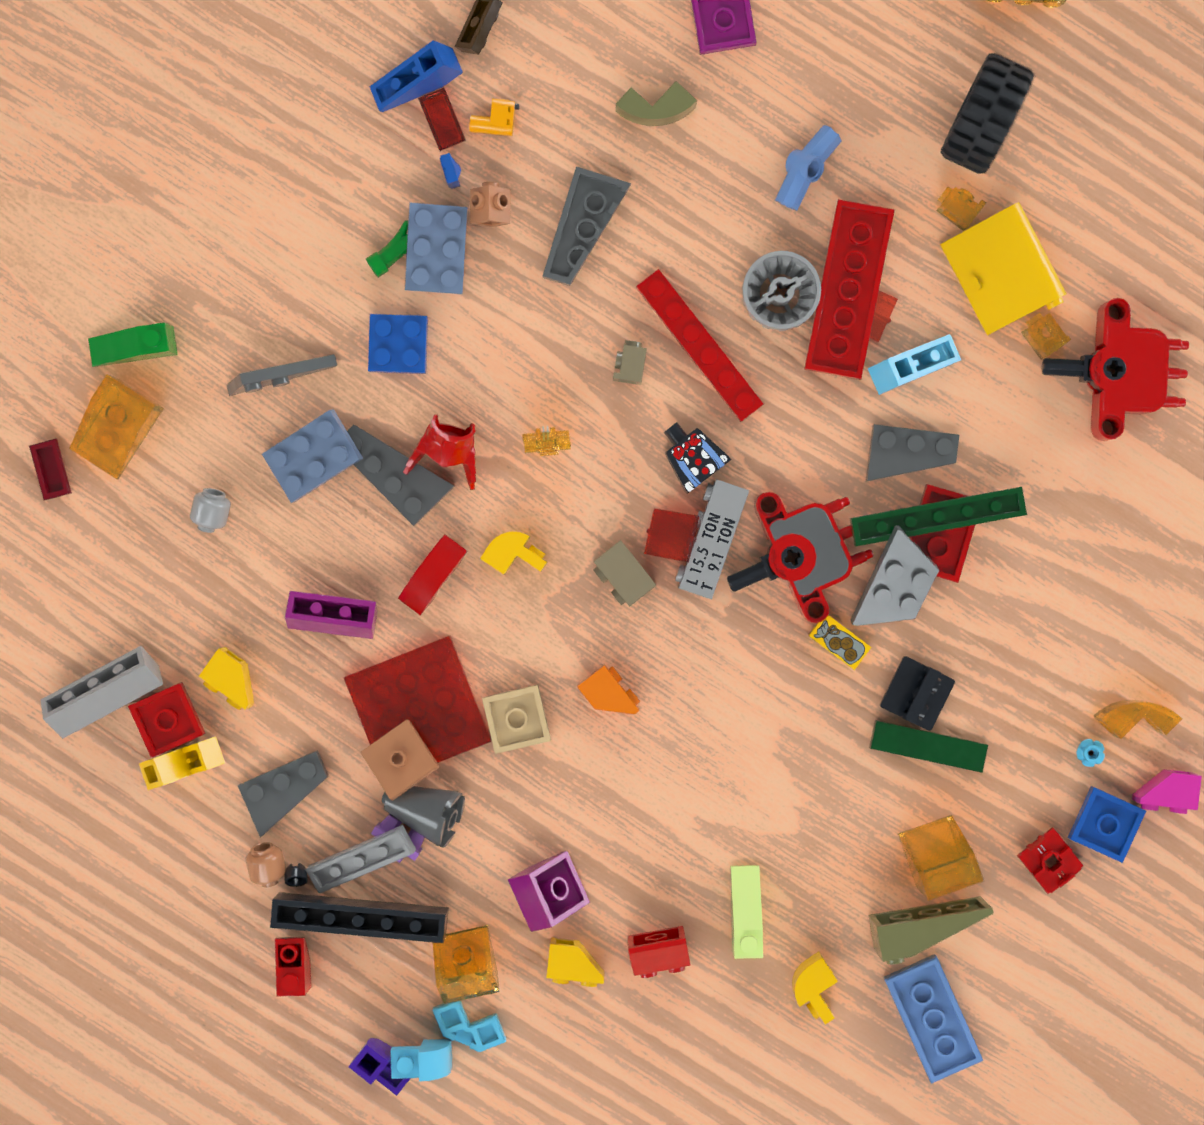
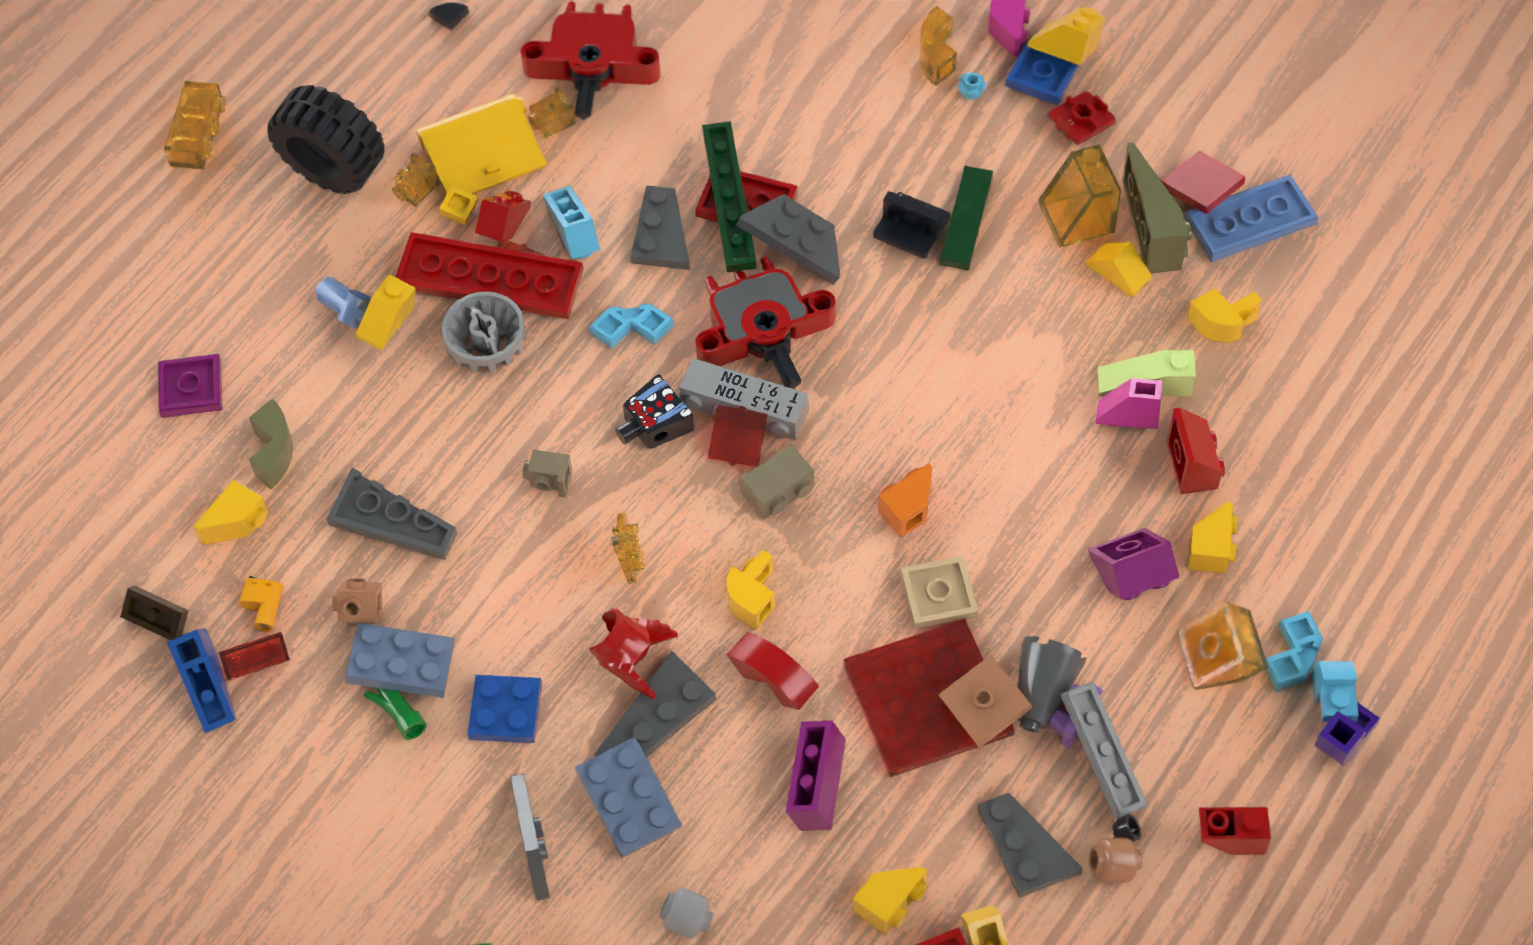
camera: 90 degrees left, 30 degrees down
(359, 917) = (1172, 754): black brick -> none
(451, 170) = (314, 645): blue tile -> none
(581, 81) = (232, 515): none -> yellow slope
(699, 345) = (533, 412): red plate -> none
(710, 896) = (1132, 405): none -> dark pink slope
(787, 196) = (386, 312): none -> yellow slope
(802, 417) = (618, 322): none -> medium azure tile
(840, 642) = (858, 291): tile -> none
(872, 890) = (1120, 266): none -> yellow slope
(918, 296) = (501, 215): none -> red slope
(931, 253) = (458, 205): none -> yellow plate
(970, 975) = (1203, 182): none -> tile
(1146, 850) = (1070, 36): none -> yellow slope
(1176, 220) = (449, 13): none -> black tile

